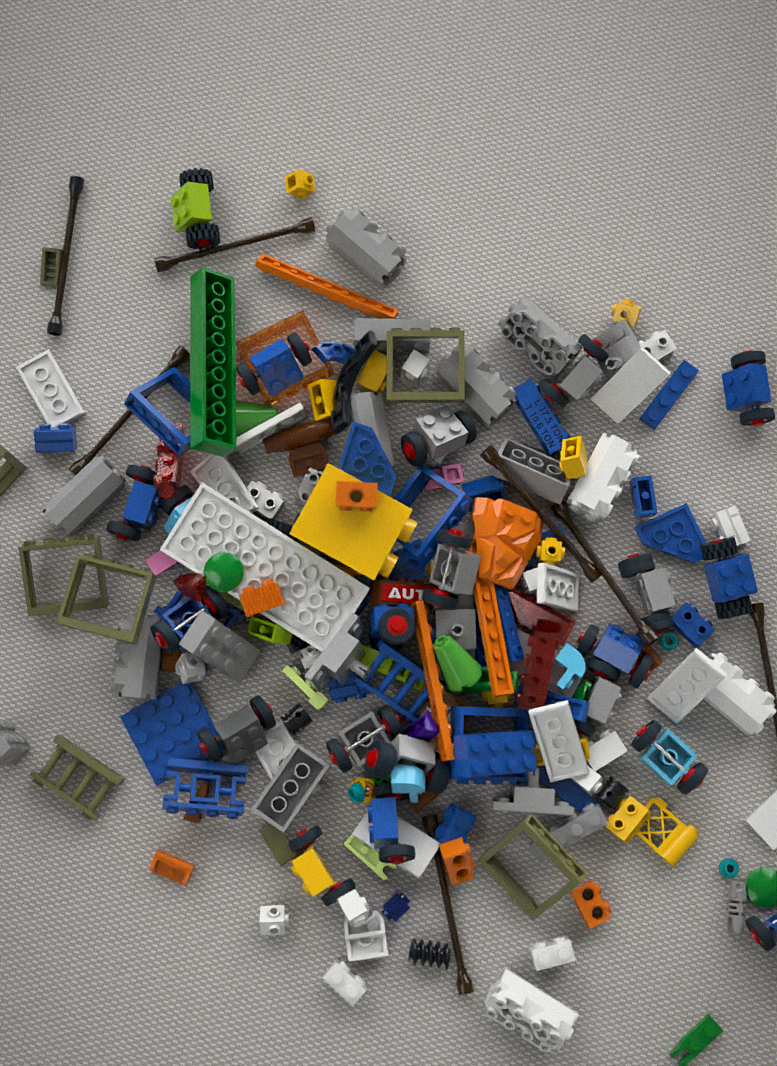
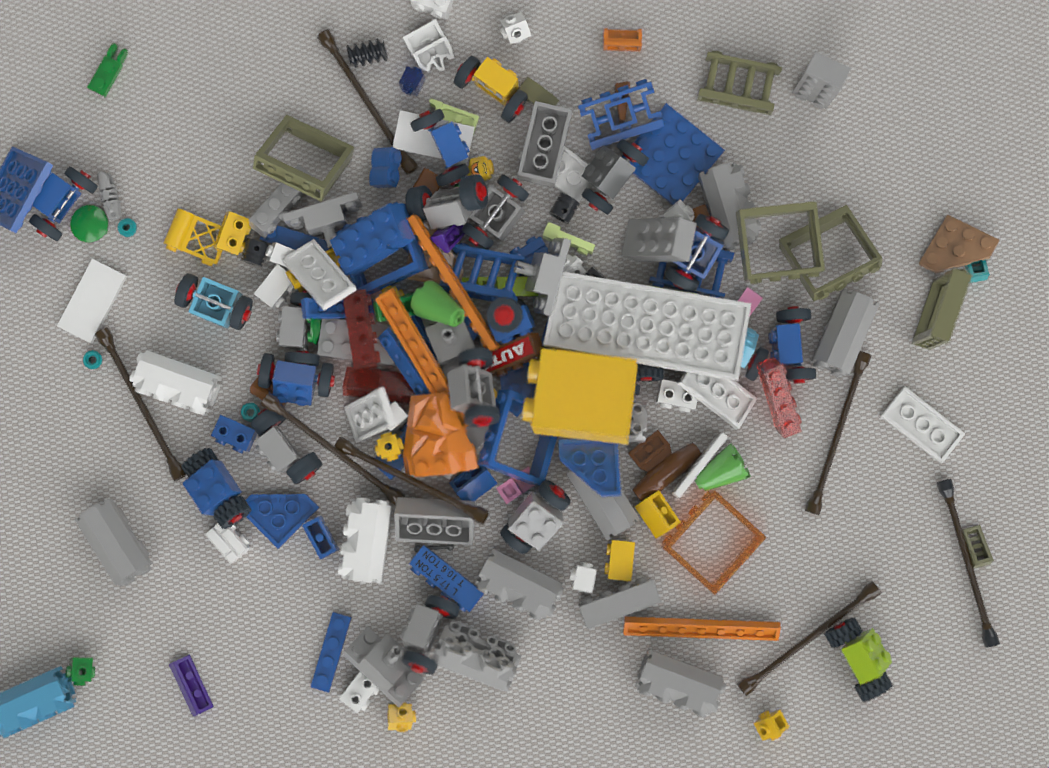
camera: 165 degrees right, 5 degrees up
(55, 439) = (896, 378): blue brick -> none
(152, 417) = (804, 423): blue window -> none
(191, 585) = (707, 283): clear red brick -> none
(212, 363) = (779, 505): green brick -> none
(223, 572) = (683, 305): green dish -> none
(261, 598) = (638, 295): orange brick -> none
(268, 630) = (622, 273): lime brick -> none
(275, 366) = (717, 523): blue brick -> none
(331, 351) = (666, 565): blue tile -> none
(343, 389) = (644, 537): black tile -> none
(354, 909) = (446, 61): white brick -> none
(356, 793) = (484, 160): teal plate -> none
(368, 492) = (581, 425): orange brick -> none
(408, 780) = (441, 186): medium azure brick -> none
(425, 397) = (563, 547): olive window -> none
(457, 860) = (371, 138): orange brick -> none
(521, 1004) = (269, 40): white brick -> none
(552, 953) = (259, 93): white brick -> none
(573, 458) = (399, 546): yellow brick -> none
(574, 664) = (329, 349): medium azure brick -> none
(586, 906) = (243, 146): orange brick -> none
(630, 385) = (370, 640): white tile -> none
(687, 686) = (219, 371): white tile -> none
(748, 388) = (256, 685): blue brick -> none

